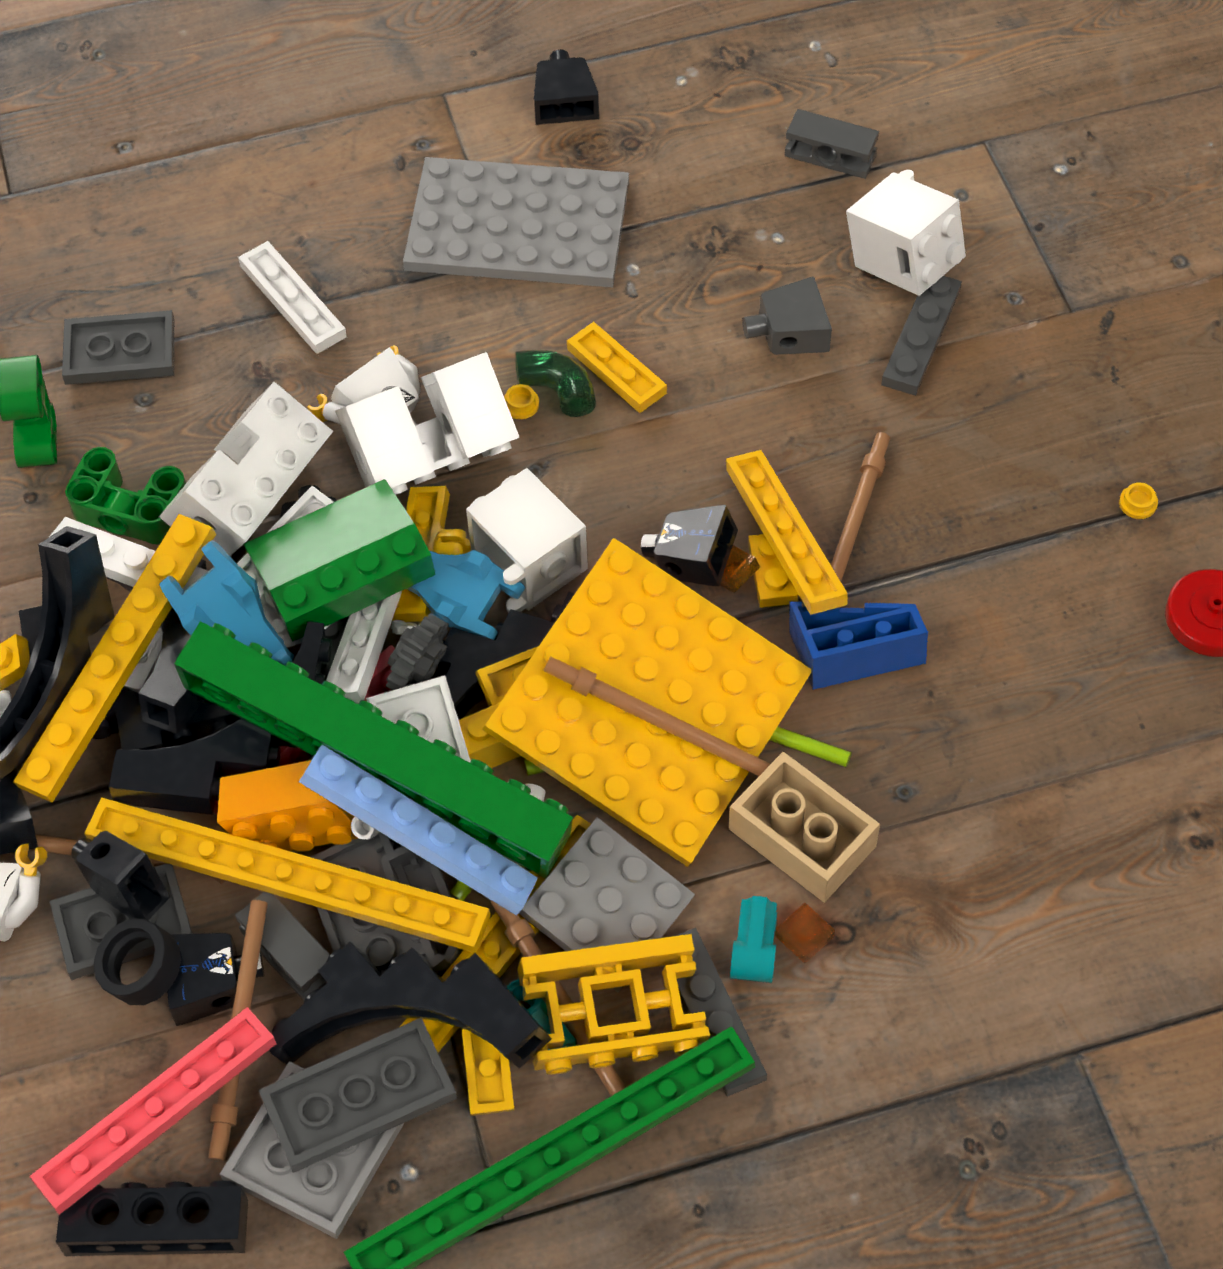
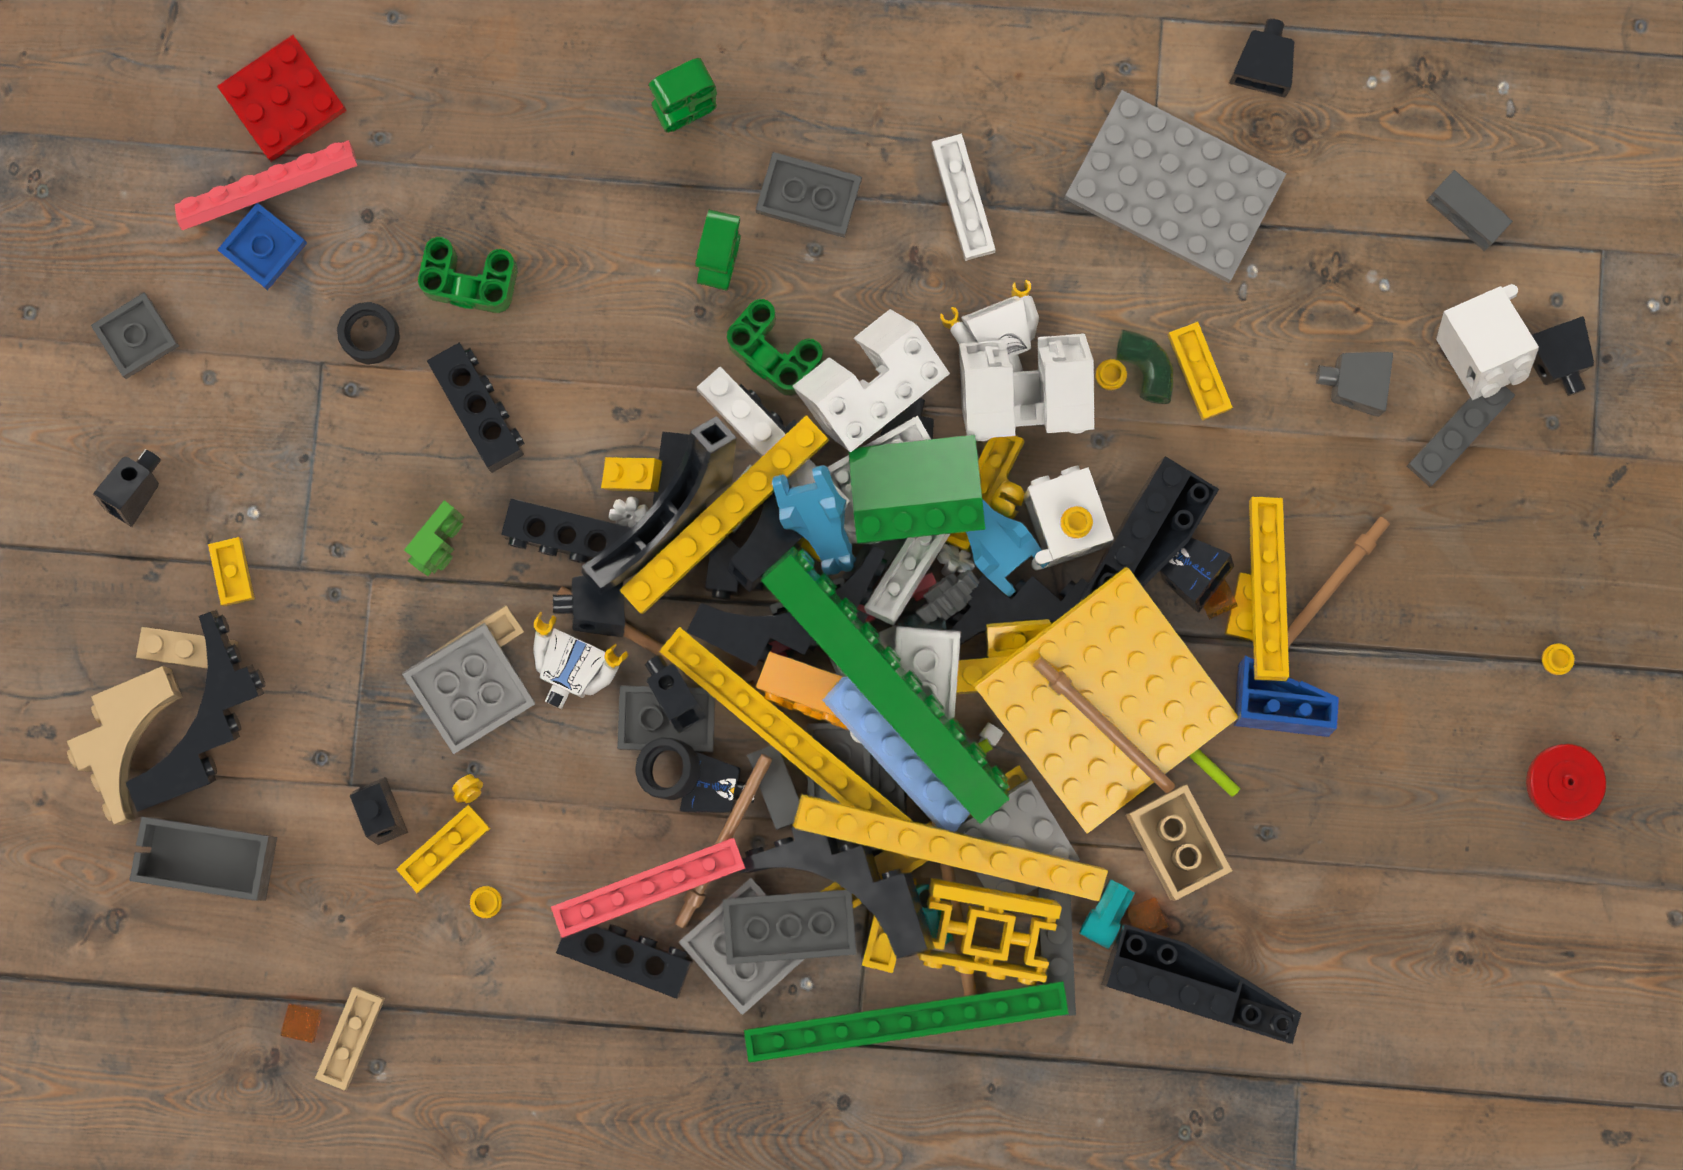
camera: 20 degrees right, 25 degrees up
(522, 916) = (949, 847): none -> yellow plate
(534, 518) = (1076, 522): none -> yellow plate
(633, 501) = (1155, 525): none -> black wedge
(895, 979) = (1195, 983): none -> black wedge
(993, 230) = (1564, 355): none -> black torso

